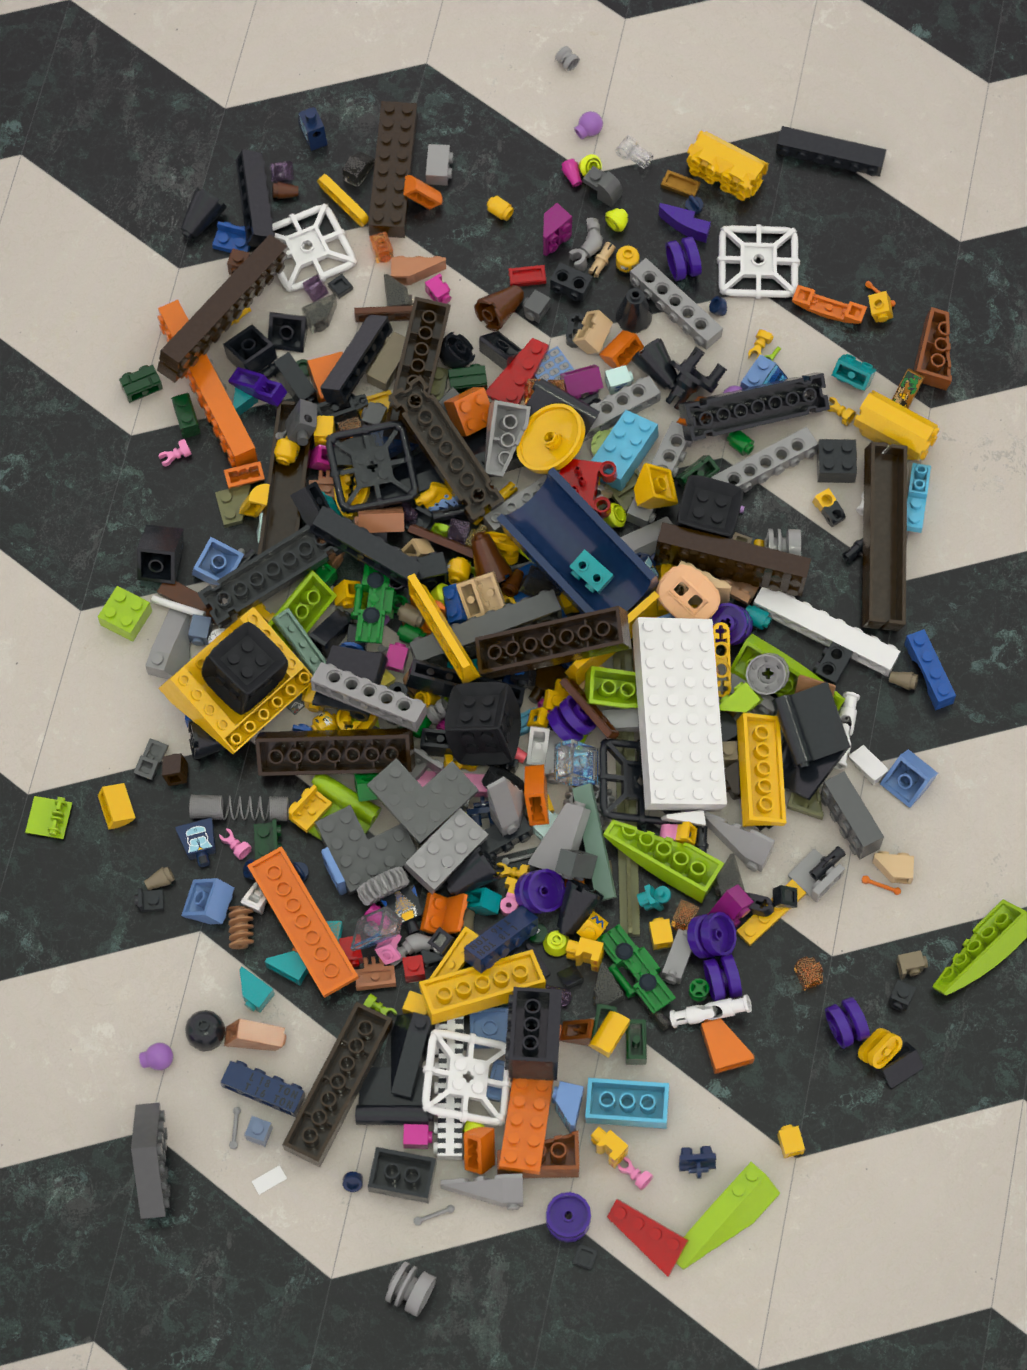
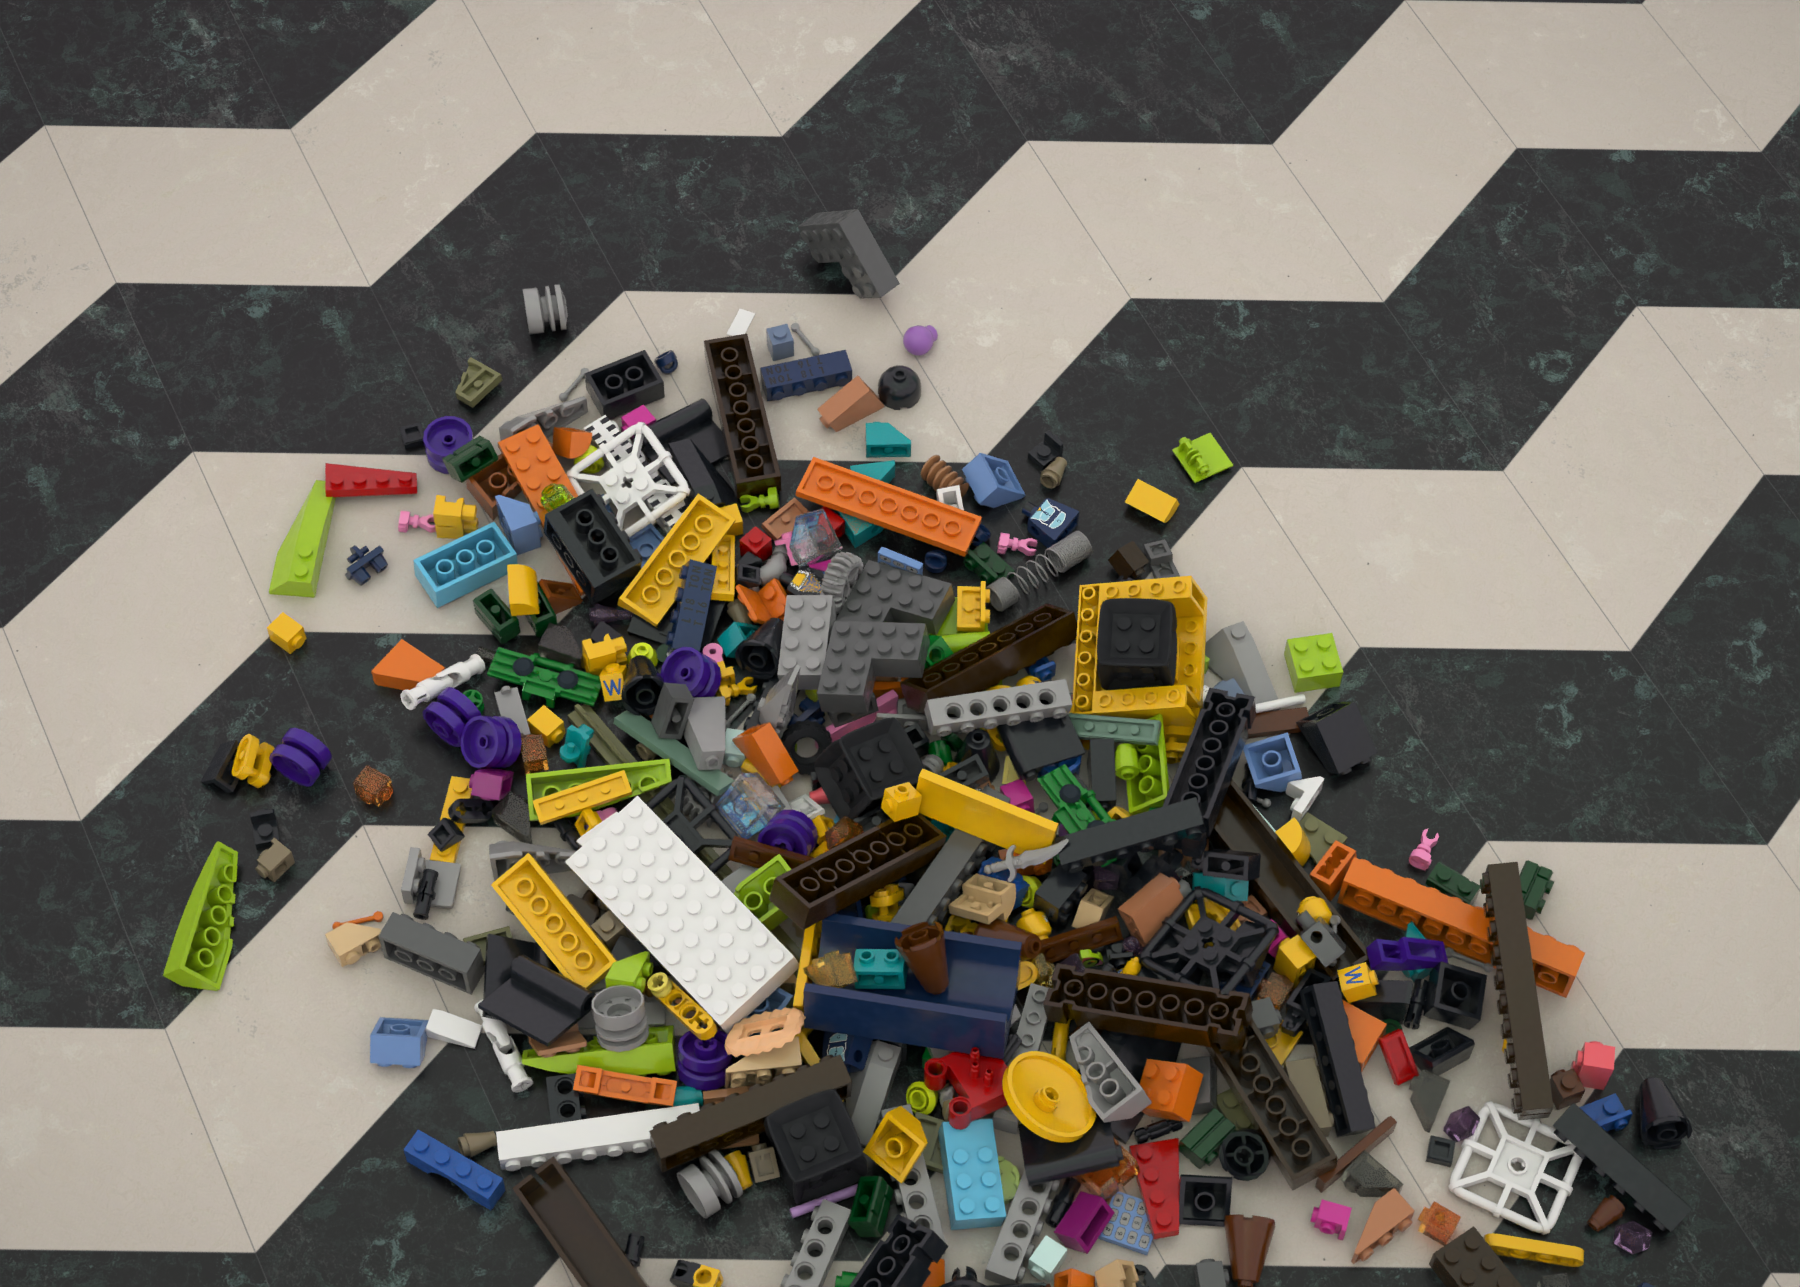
camera: 140 degrees right, 10 degrees down
(212, 259) = (1594, 1064): none -> coral brick
(216, 531) = (1304, 793): none -> white slope
(303, 387) = (1358, 982): none -> yellow brick
(312, 619) = (1126, 761): none -> lime brick
(316, 344) = (1398, 1057): none -> red tile
(437, 588) = (1027, 858): none -> light grey piece
(487, 672) = (901, 801): none -> yellow brick
(506, 1268) = (476, 382): none -> olive wing
(533, 1086) = (555, 496): none -> clear neon green head
(536, 689) = (842, 831): none -> clear orange brick
(560, 553) = (925, 955): none -> reddish brown cone
(568, 1175) = (470, 459): none -> dark green brick
(624, 587) = (832, 970): none -> clear yellow slope
(681, 846) = (582, 797): none -> yellow plate
(729, 688) = (656, 990): none -> light yellow bush
(788, 643) = (625, 1086): none -> orange slope

